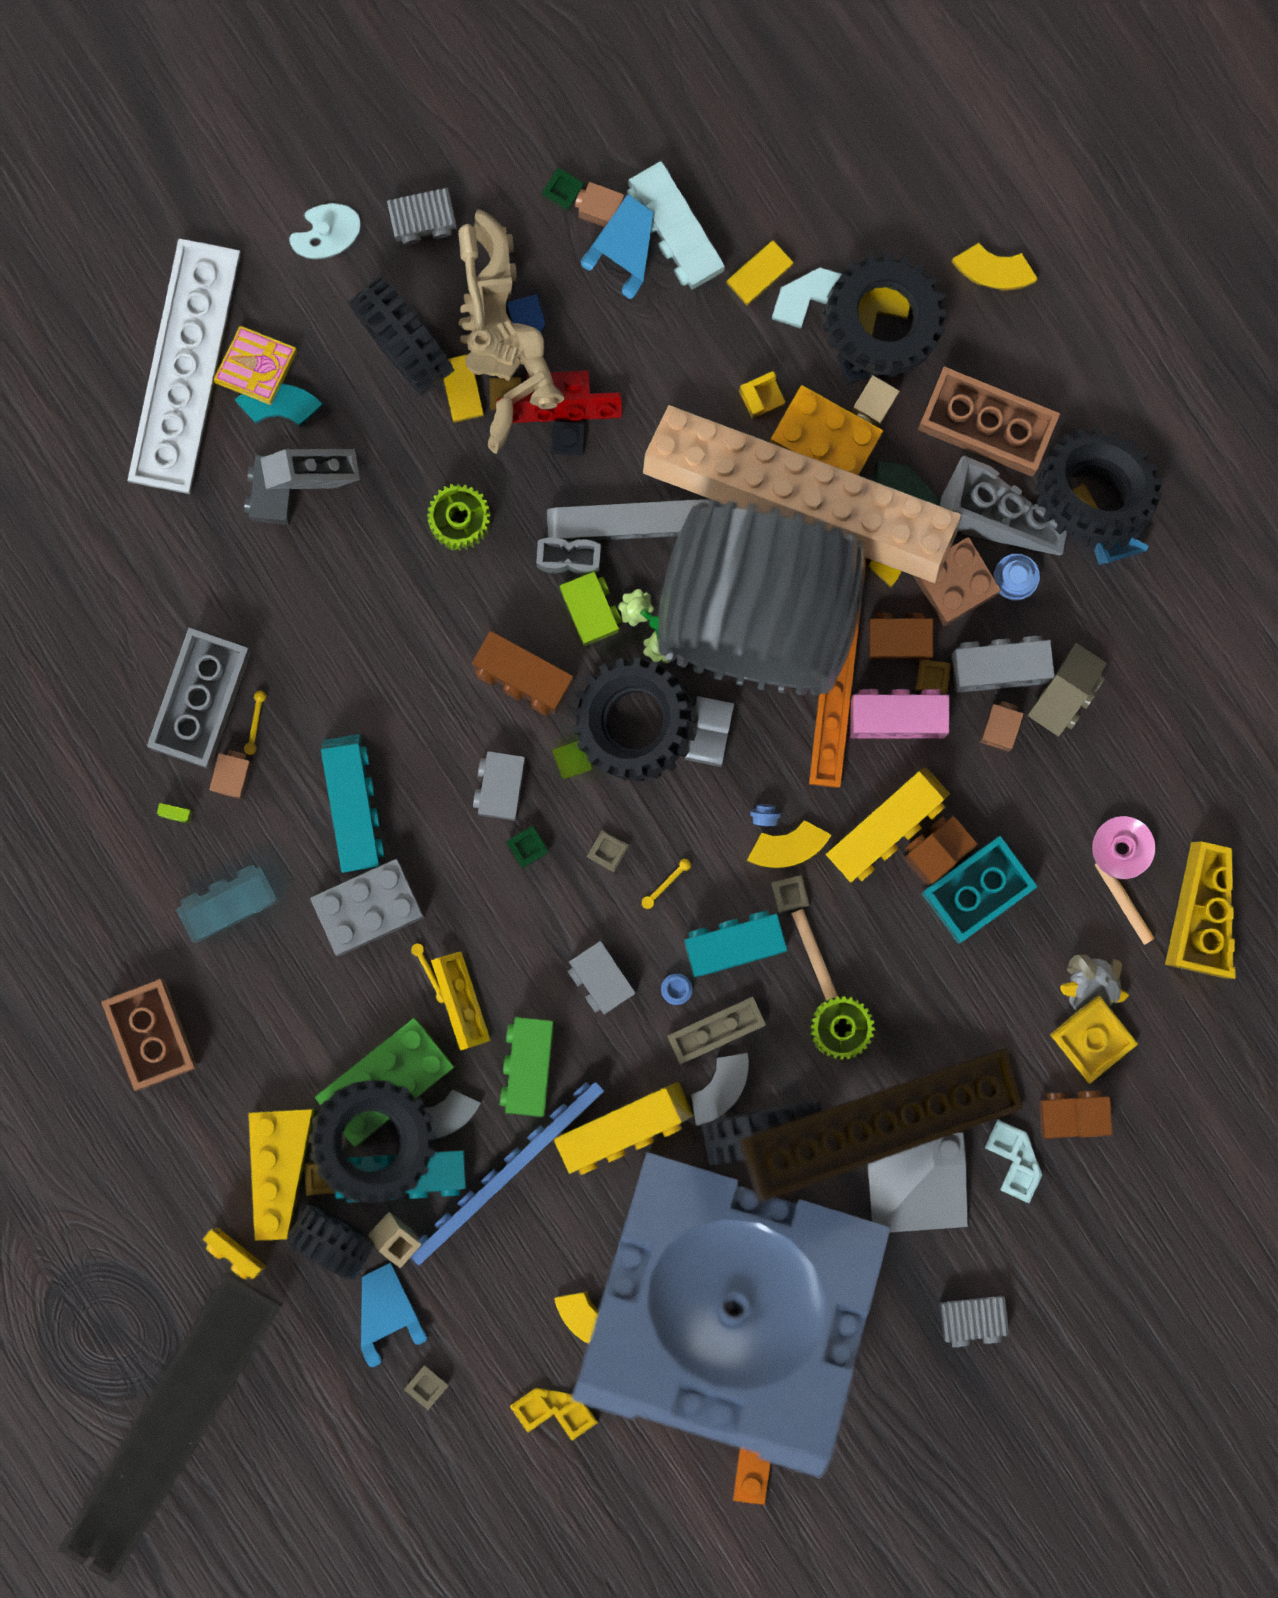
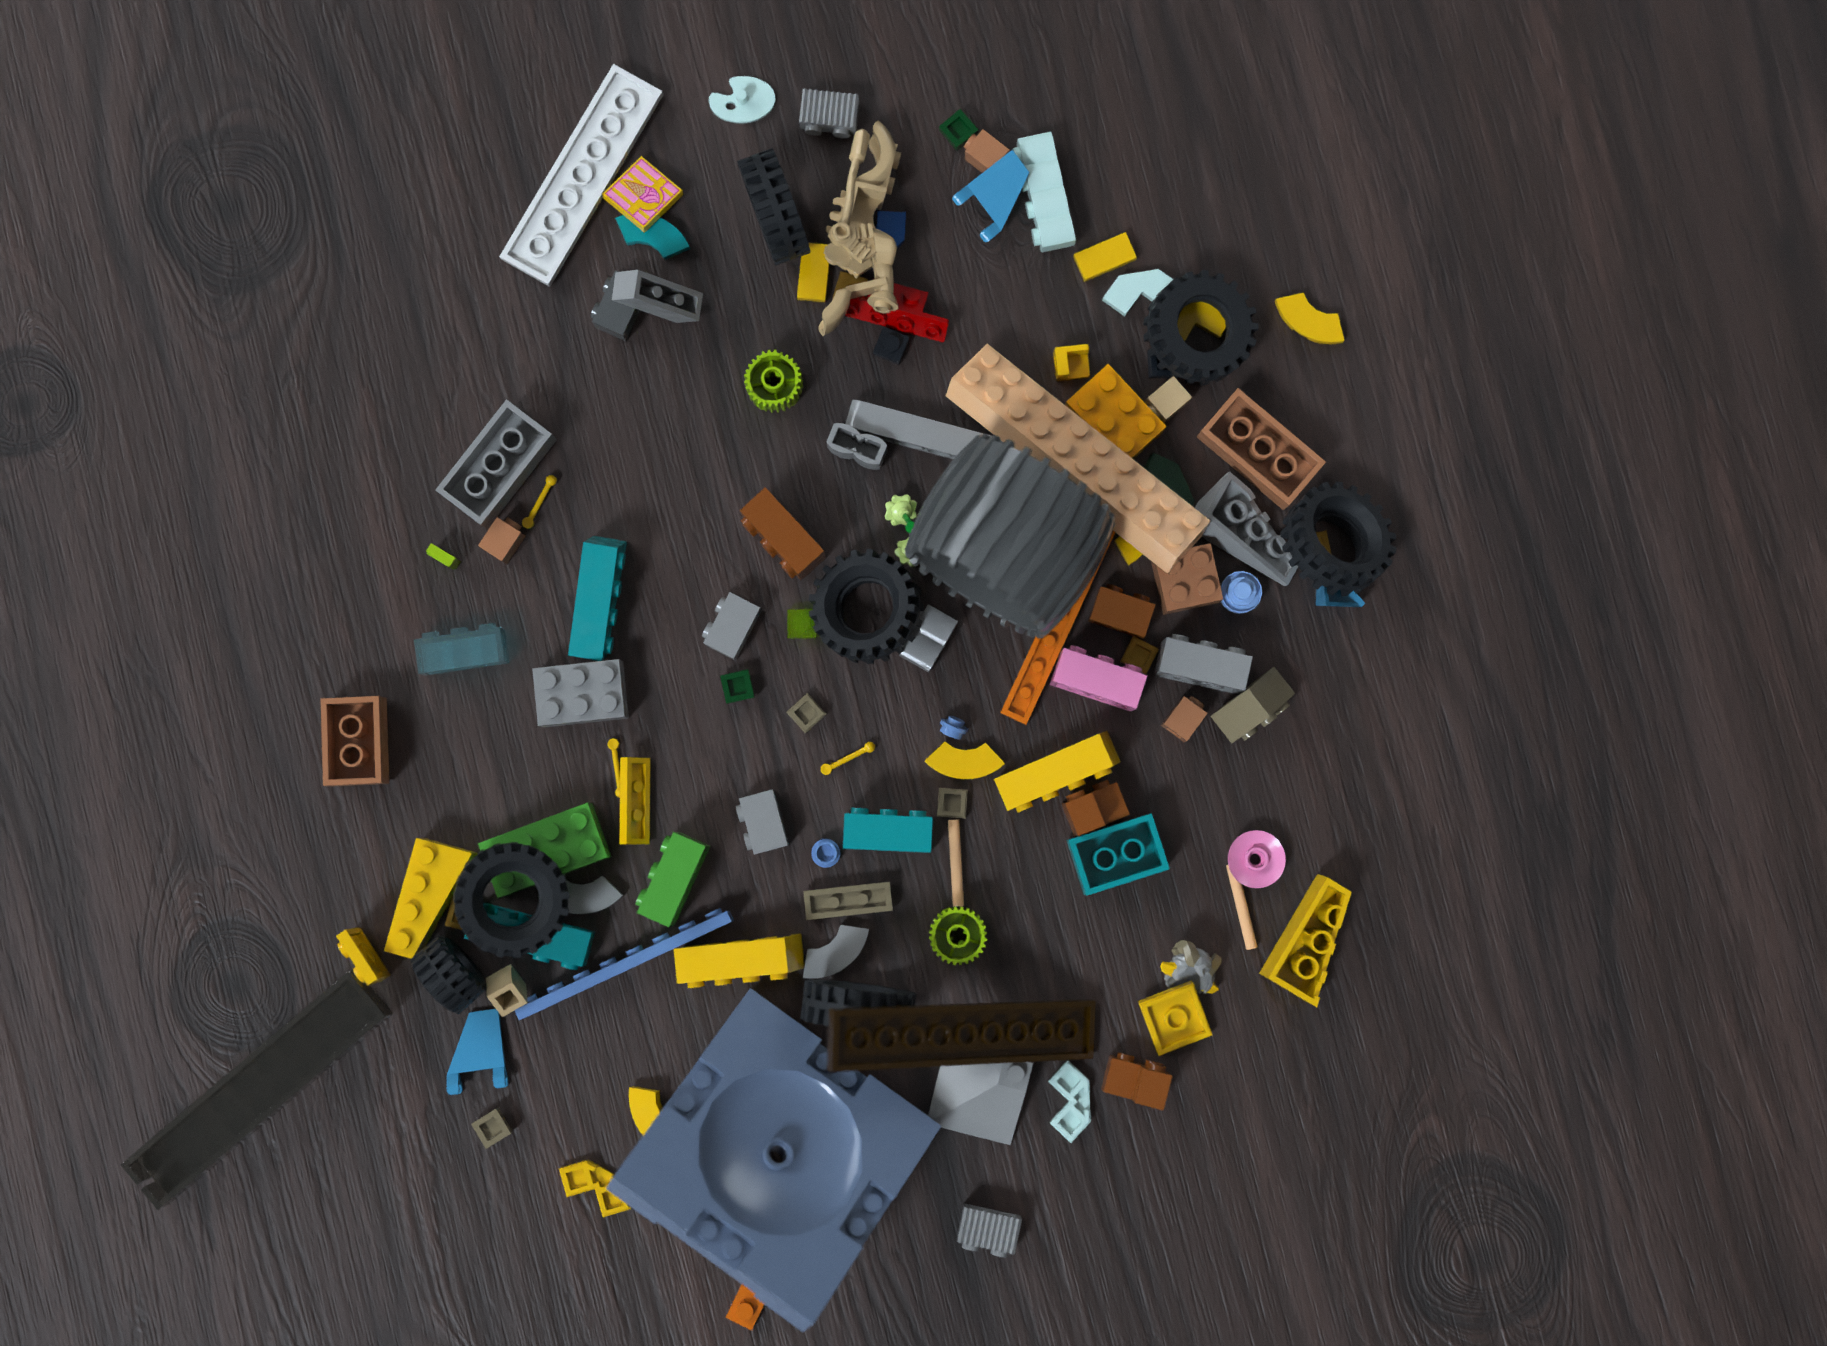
camera: 20 degrees right, 0 degrees up
(590, 608) = (860, 498): lime brick -> none

